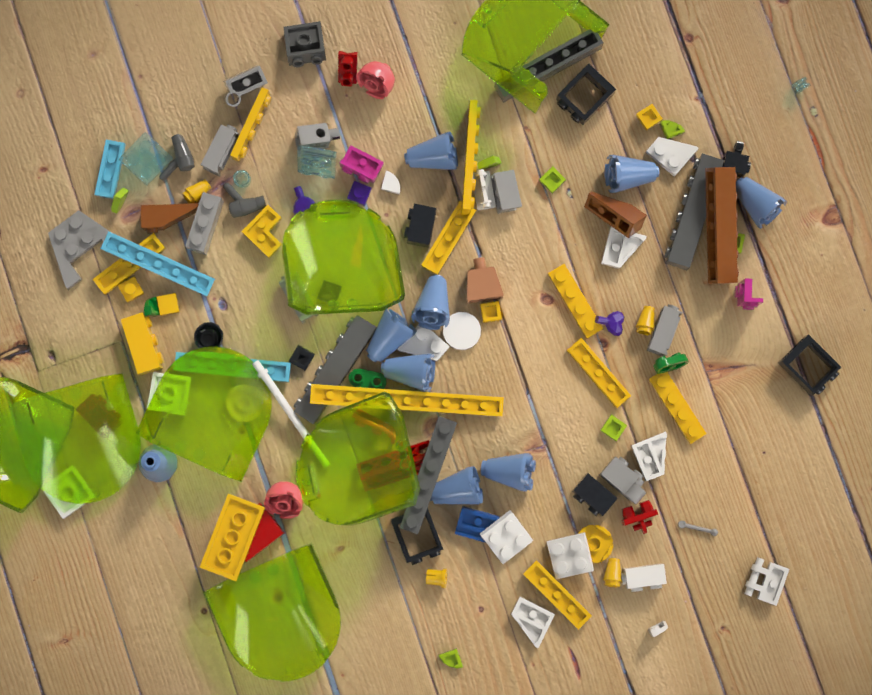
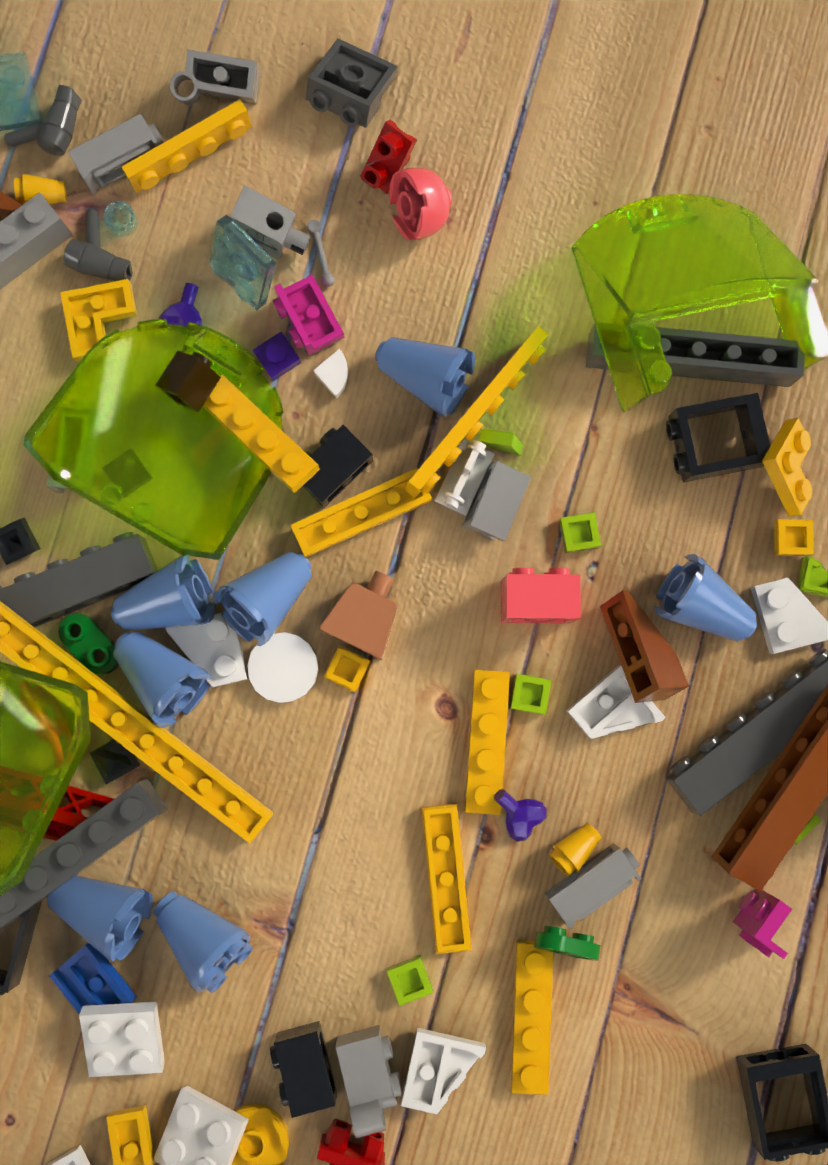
camera: 30 degrees right, 0 degrees up
(332, 230) = (188, 380): none -> dark brown brick
(334, 122) = (314, 229): none -> light grey hinge
(379, 233) = (260, 435): none -> yellow plate
(416, 422) = (113, 761): none -> black tile
(555, 220) = (540, 597): none -> coral brick
(580, 267) = (530, 694): none -> lime tile
(623, 89) = (784, 468): none -> yellow plate

